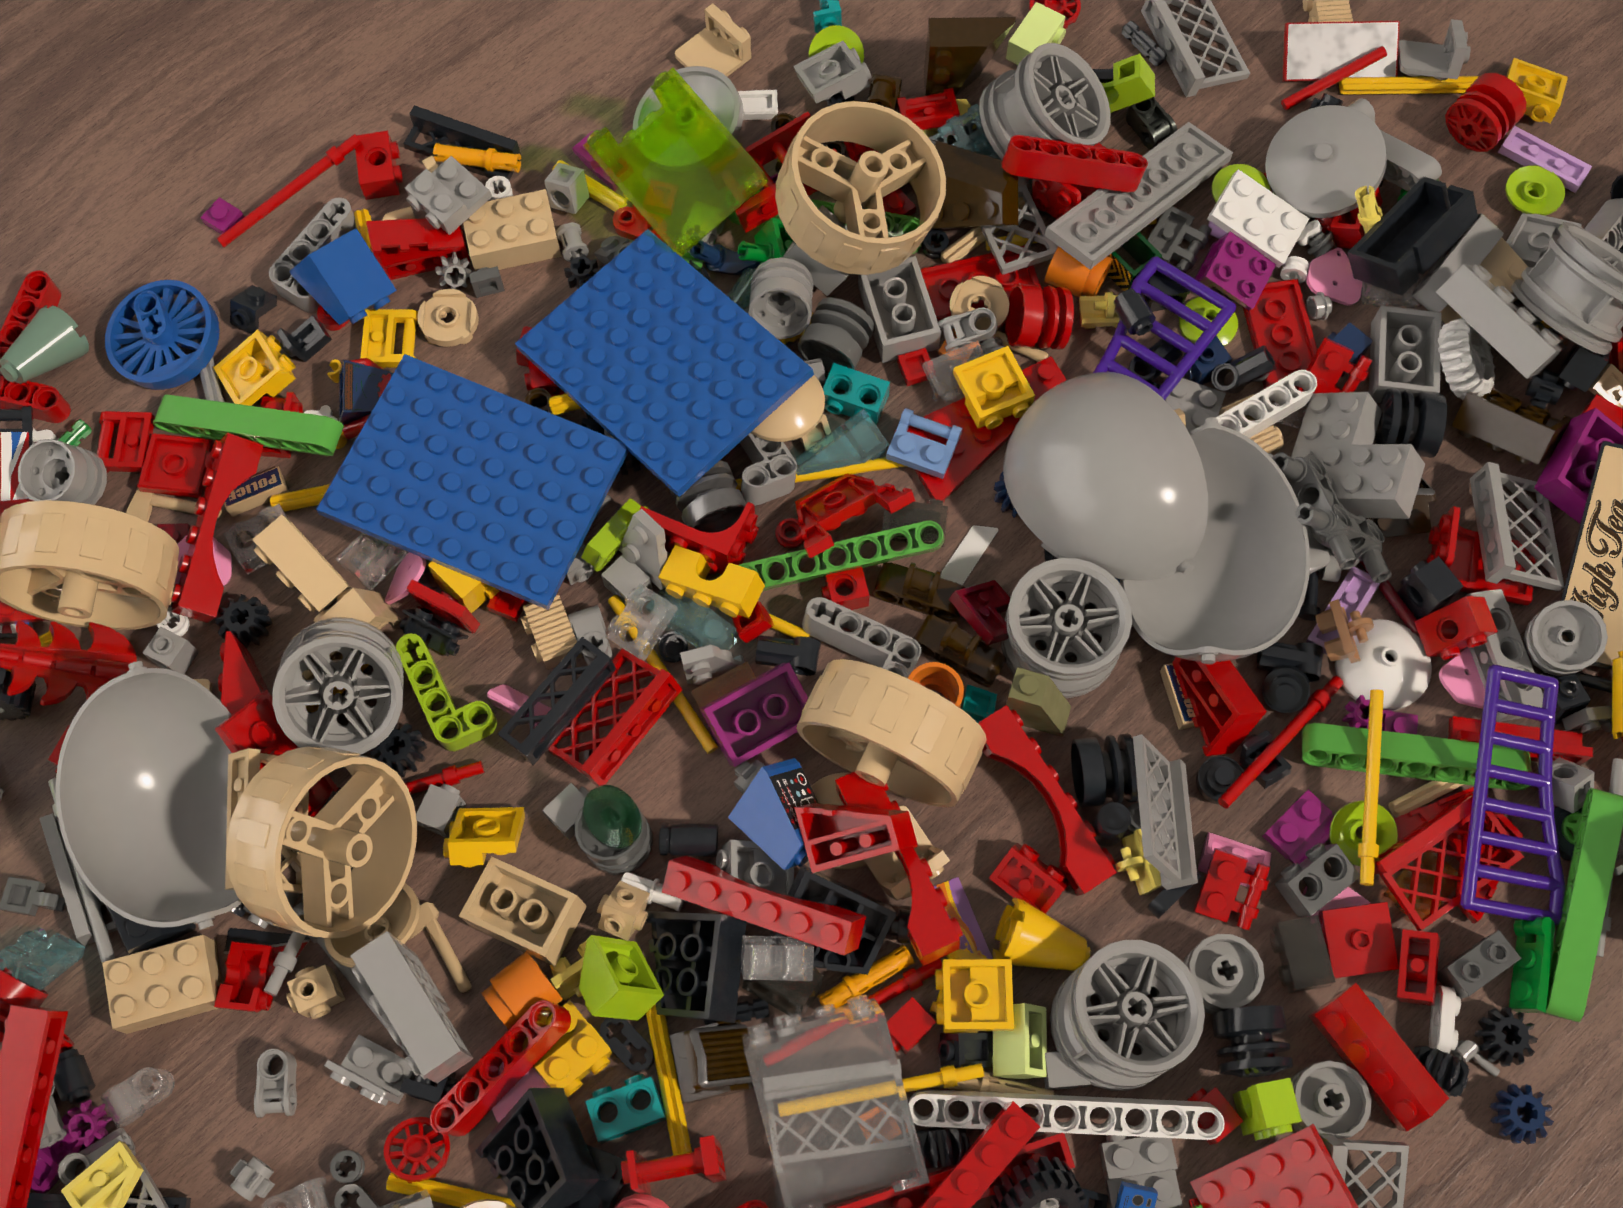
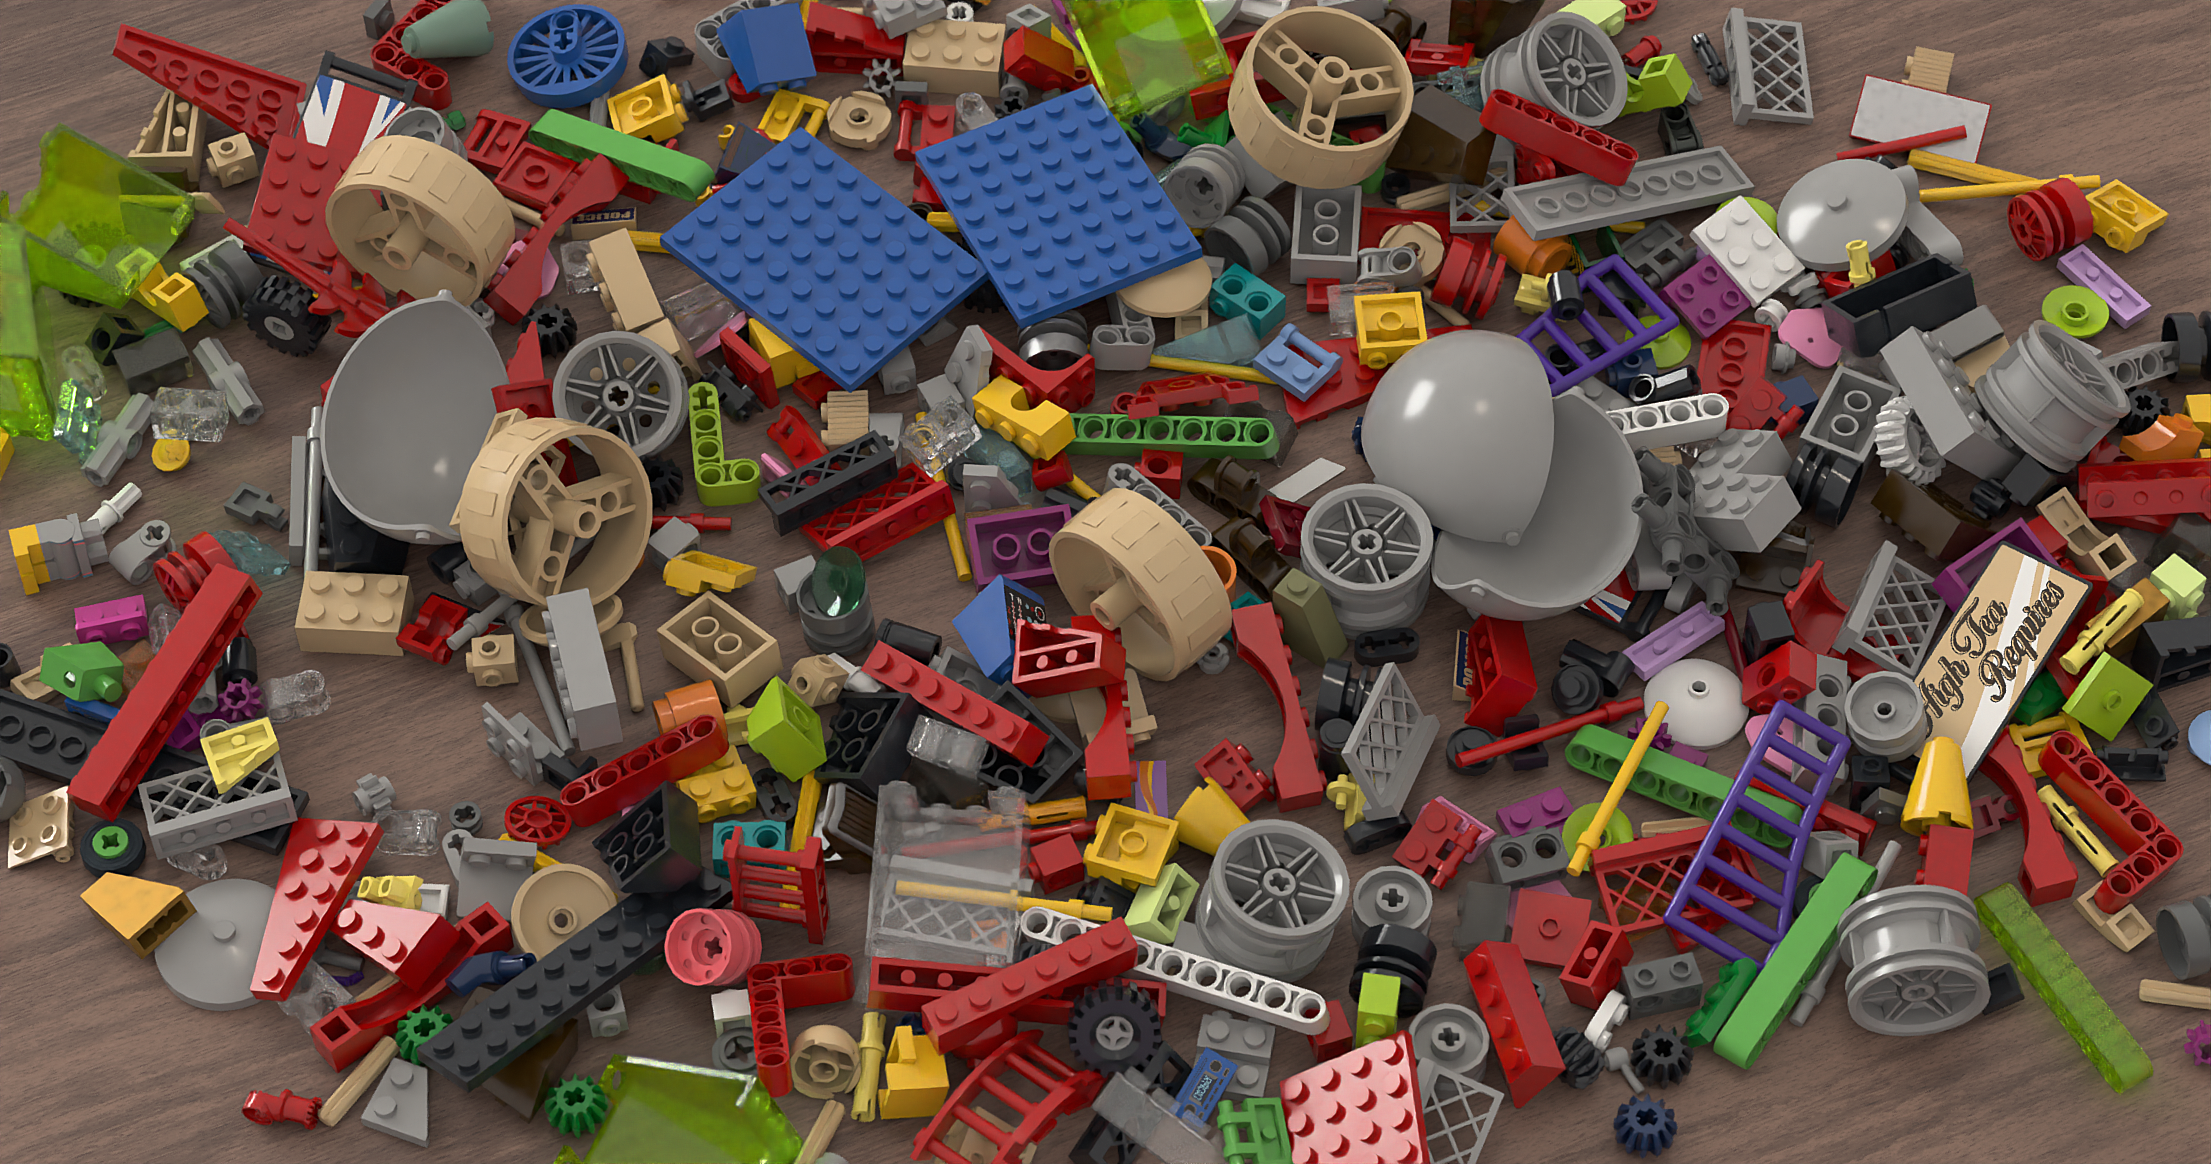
camera: 20 degrees right, 15 degrees down
(276, 1086) = (425, 731): light grey piece -> none
(518, 665) = (802, 445): none -> red plate
(519, 307) = (937, 126): none -> red plate
(550, 286) = (972, 112): none -> clear piece
(587, 215) = (1038, 60): none -> red brick
(609, 538) = (931, 356): lime piece -> none
(1091, 48) = (1647, 48): none -> red pin
(1102, 691) = (1386, 647): none -> black beam
(1345, 645) = (1660, 648): medium nougat hips -> none
(1436, 59) = (2021, 156): light grey bracket -> none
(1440, 90) = (2000, 189): none -> yellow bar

